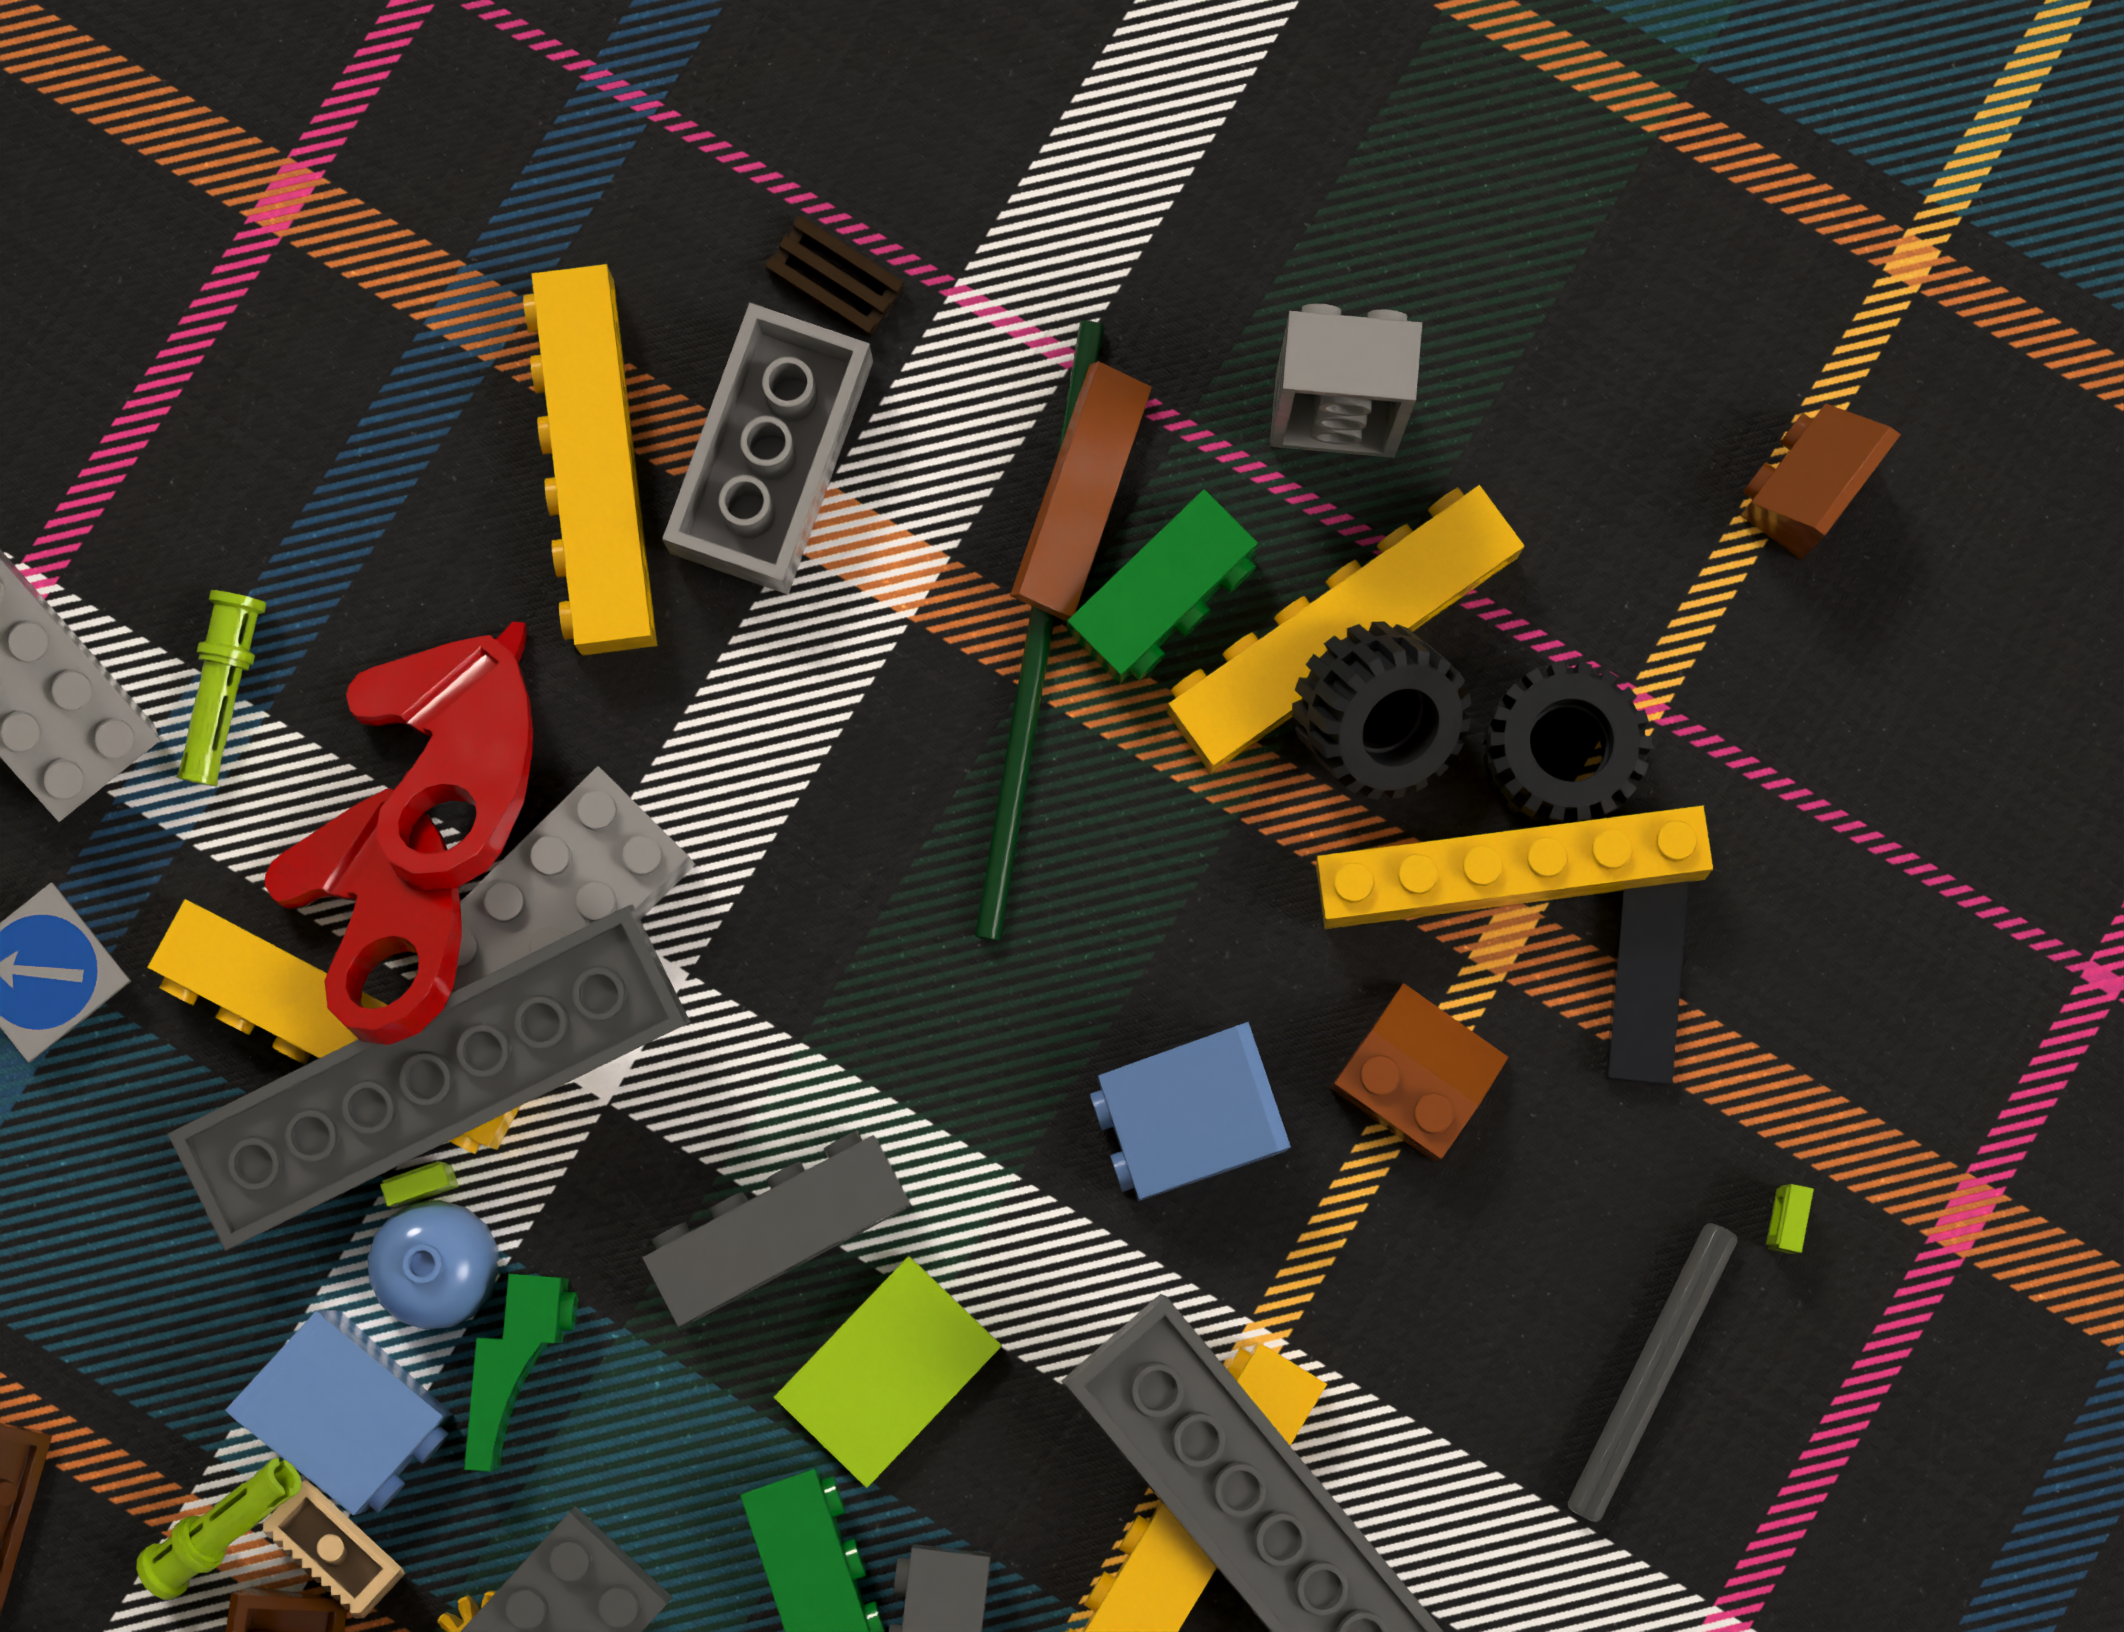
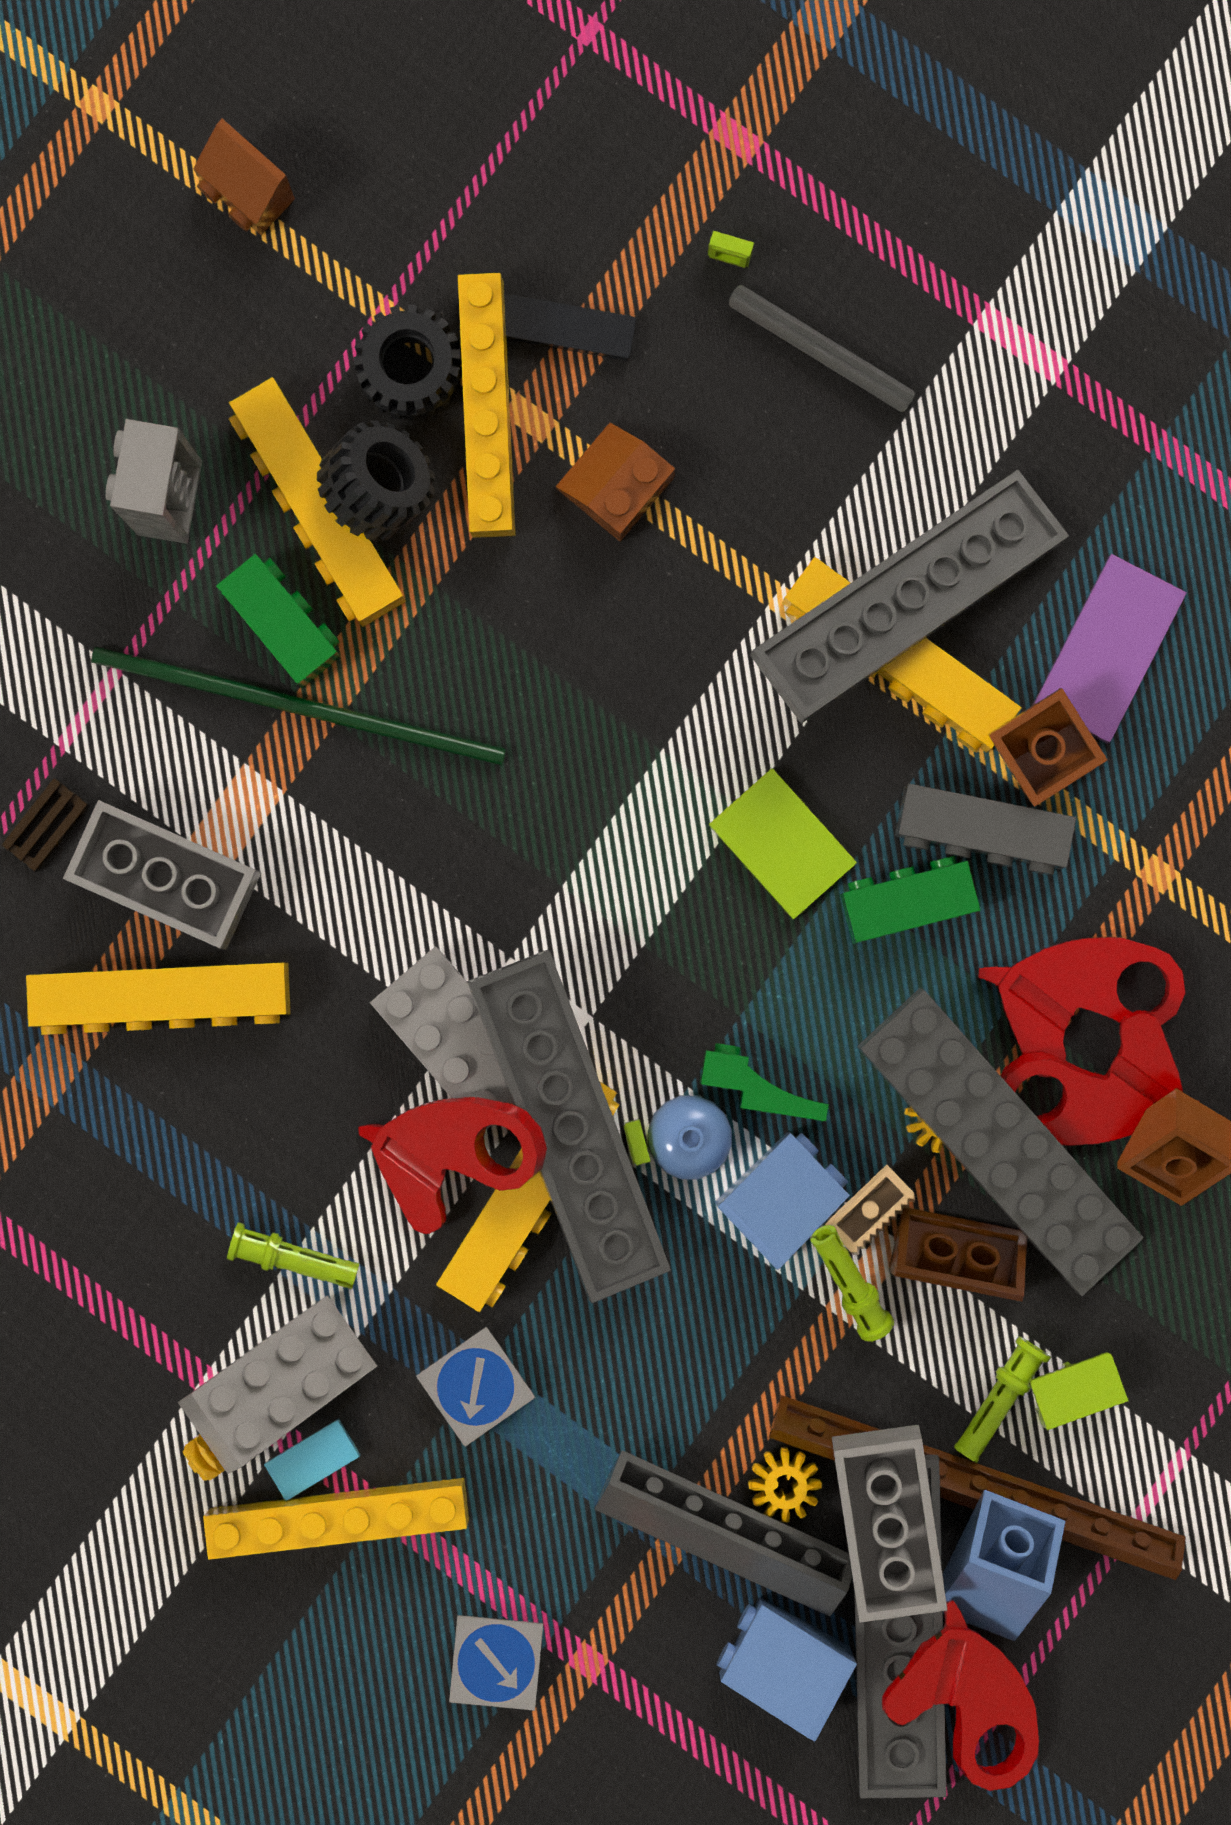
camera: 90 degrees left, 5 degrees up
(478, 751) = (349, 1081): red animal -> none
(776, 1230) = (685, 906): dark grey brick -> none
(1081, 491) = (208, 669): dark orange tile -> none
(1190, 1113) = (631, 629): medium blue slope -> none

